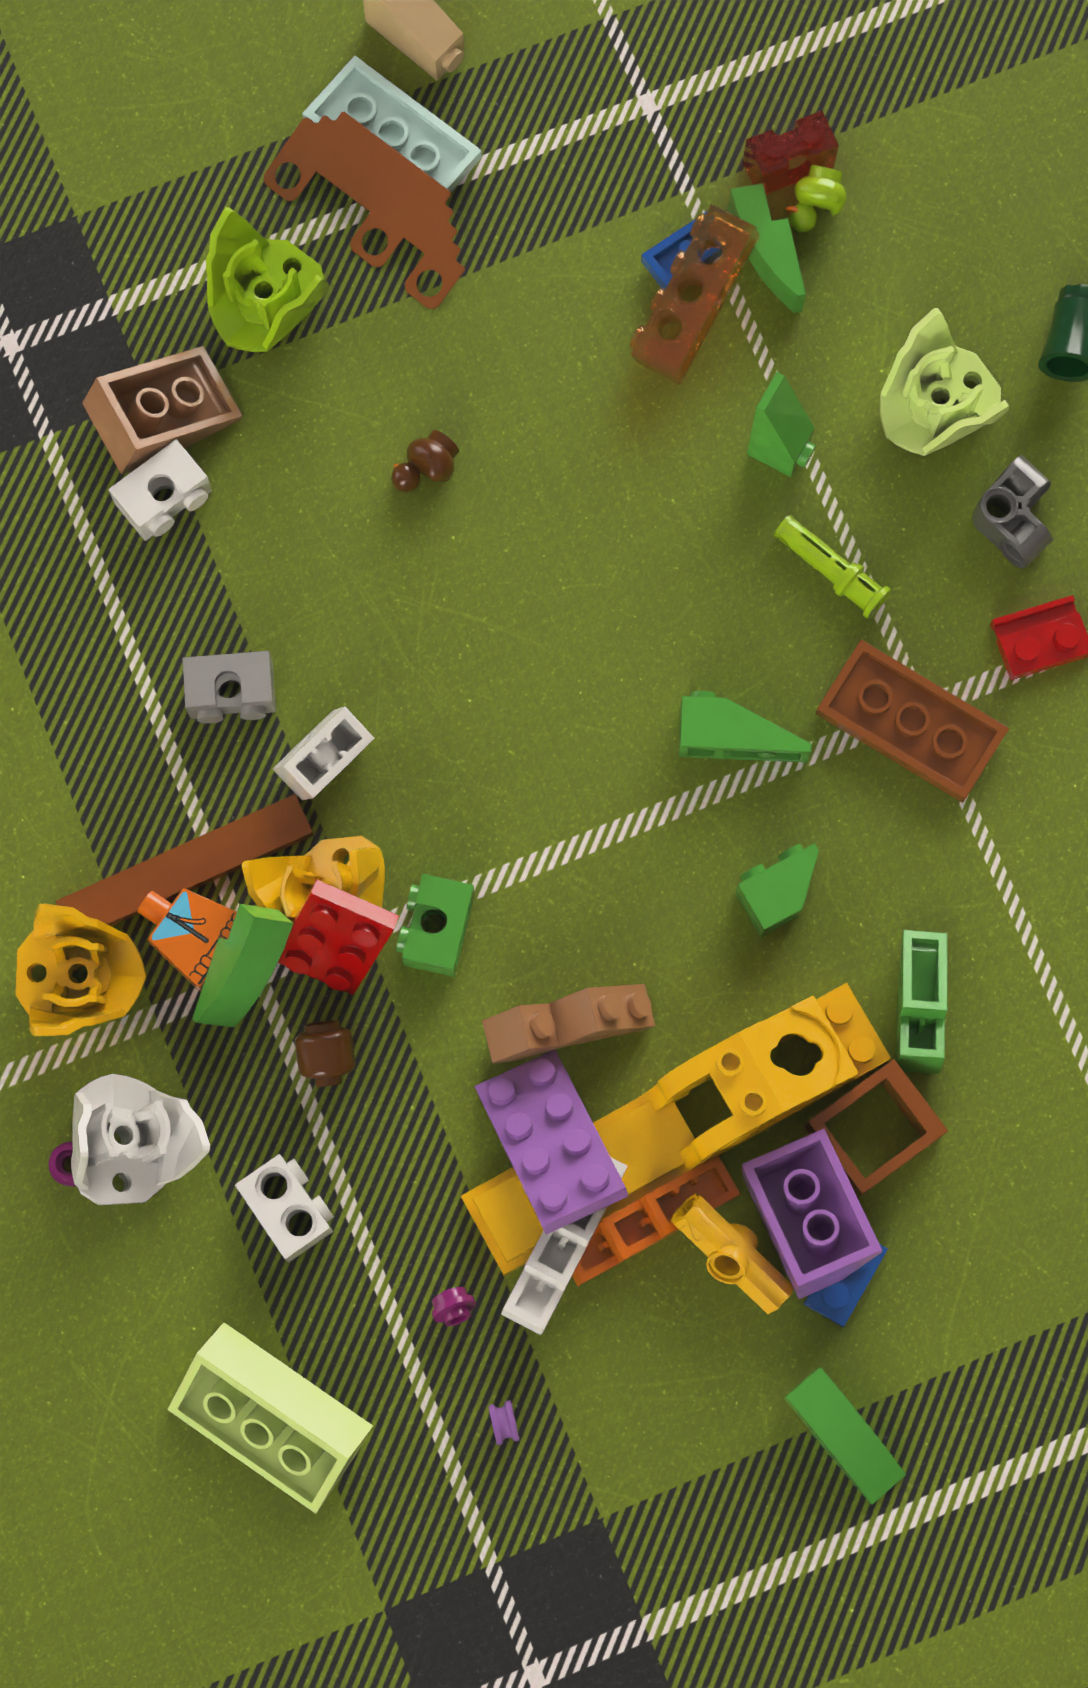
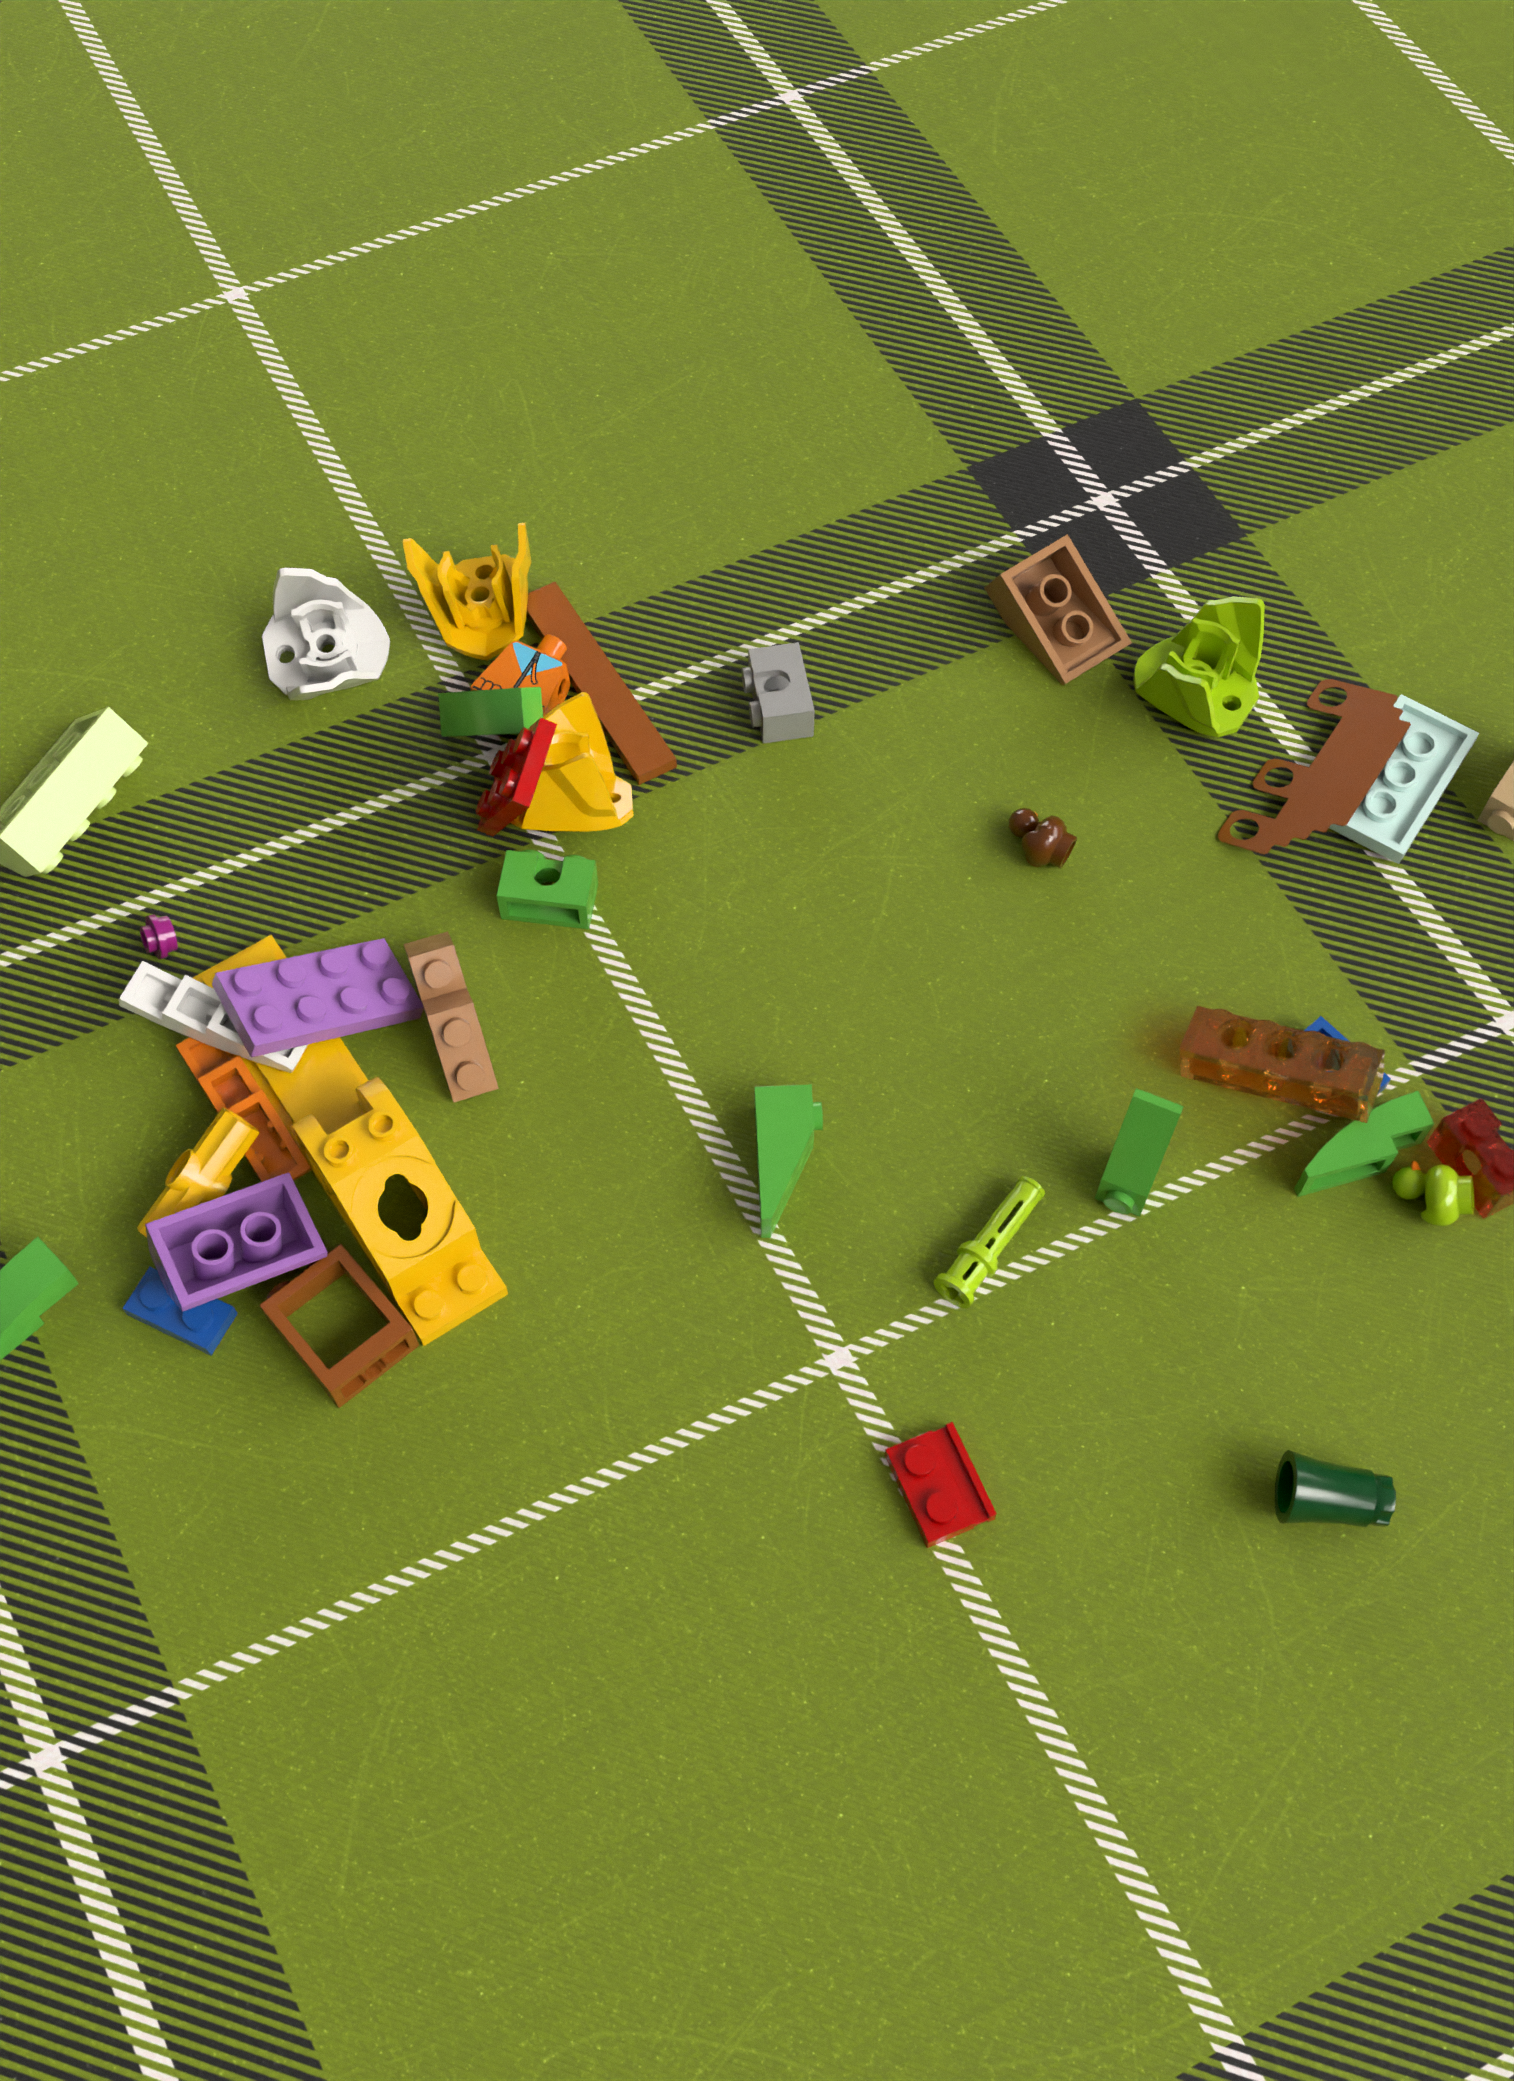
camera: 85 degrees right, 15 degrees down
(167, 469) = (973, 618): white brick -> none
(276, 1213) = (258, 780): white brick -> none
(323, 753) = (715, 768): white brick -> none
(325, 1052) = (413, 803): reddish brown head -> none
(503, 1422) = (40, 990): medium lavender bush -> none
(779, 892) = (604, 1210): bright green slope -> none
(911, 721) = (816, 1339): dark orange plate -> none
(922, 1002) = (487, 1367): bright green slope -> none
(933, 371) = (1249, 1318): yellowish green piece -> none
(1019, 532) = (1117, 1441): flat silver piece -> none

